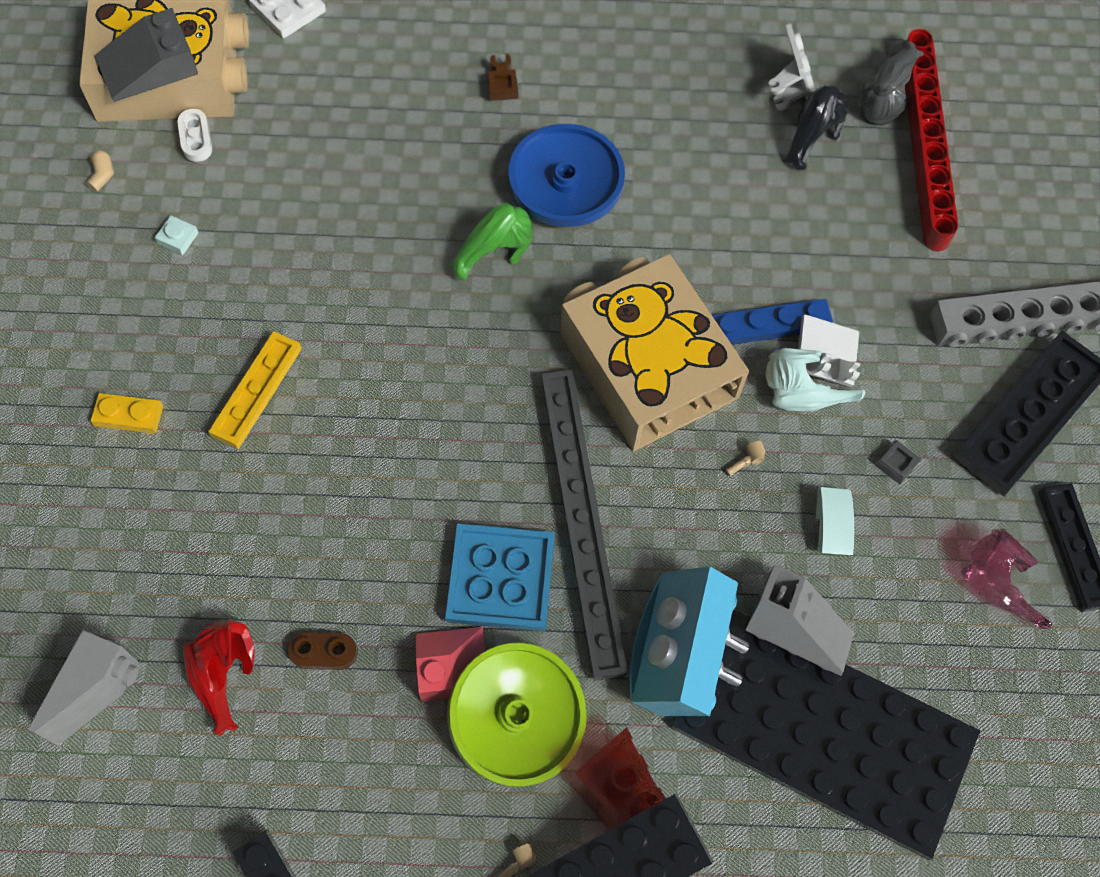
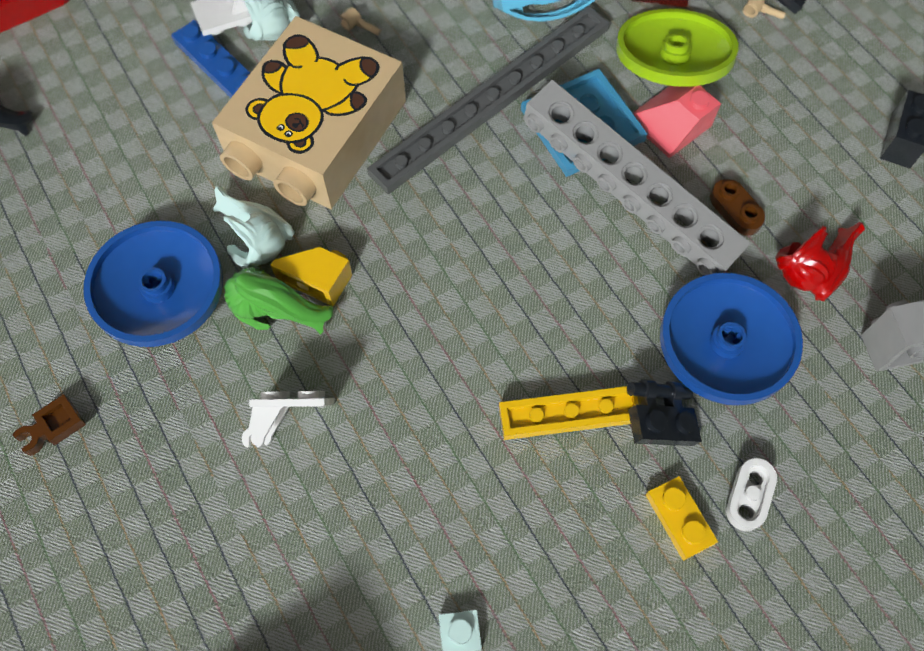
camera: 120 degrees left, 0 degrees up
(99, 470) = (751, 496): none -> white plate
(192, 441) = (662, 424): none -> black plate
(212, 536) = (731, 339): none -> blue dish
(284, 581) = (629, 163): none -> light grey brick
(399, 207) = (271, 409): none -> white plate
(499, 283) = (315, 273): none -> yellow slope
(562, 266) = (256, 225): none -> light aqua hair

